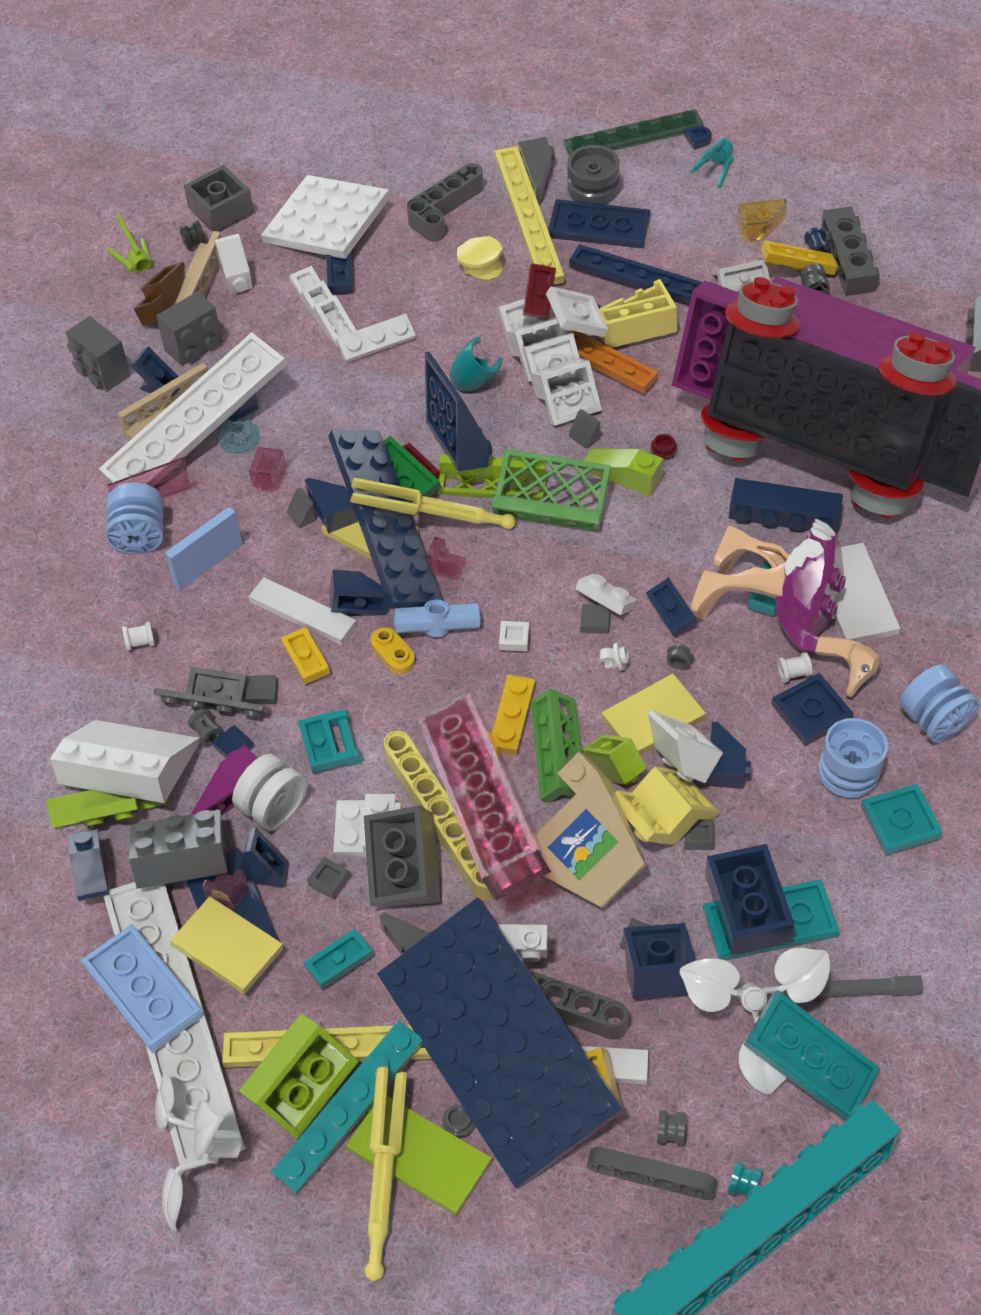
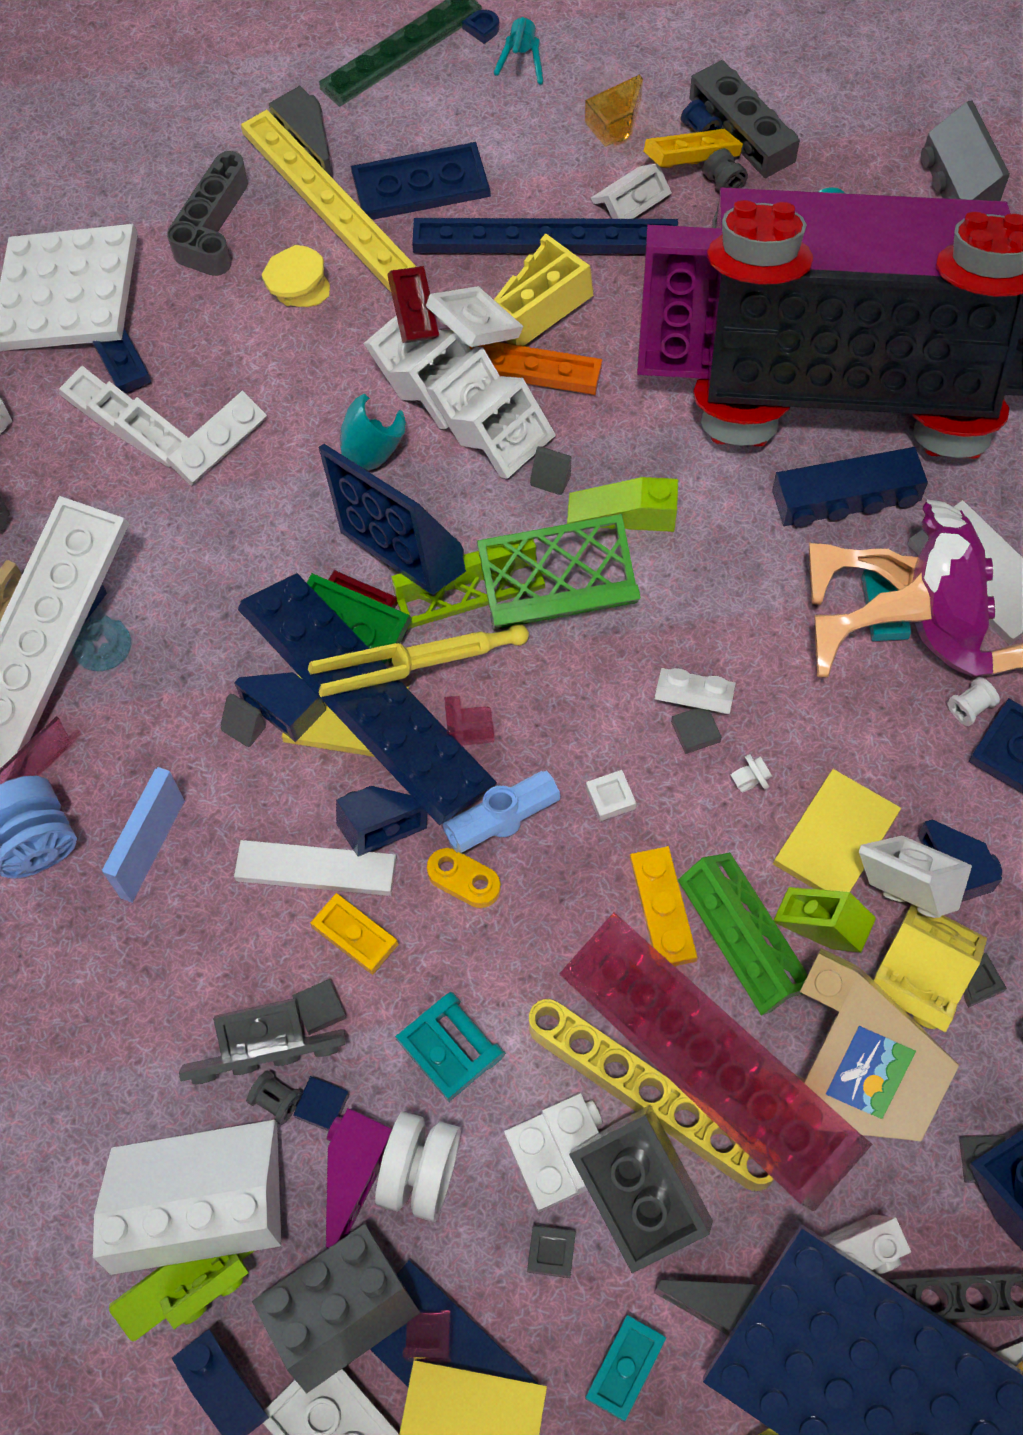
camera: 25 degrees left, 10 degrees up
(138, 636) = (112, 997): white bush -> none
(263, 861) = (455, 1272): dark blue slope -> none
(267, 468) = (167, 679): clear pink brick -> none
(593, 174) = (385, 117): dark grey wheel -> none
(663, 446) = (658, 458): dark red plate -> none
(672, 607) = (785, 677): dark blue plate -> none
(679, 656) = (828, 741): dark grey plate -> none

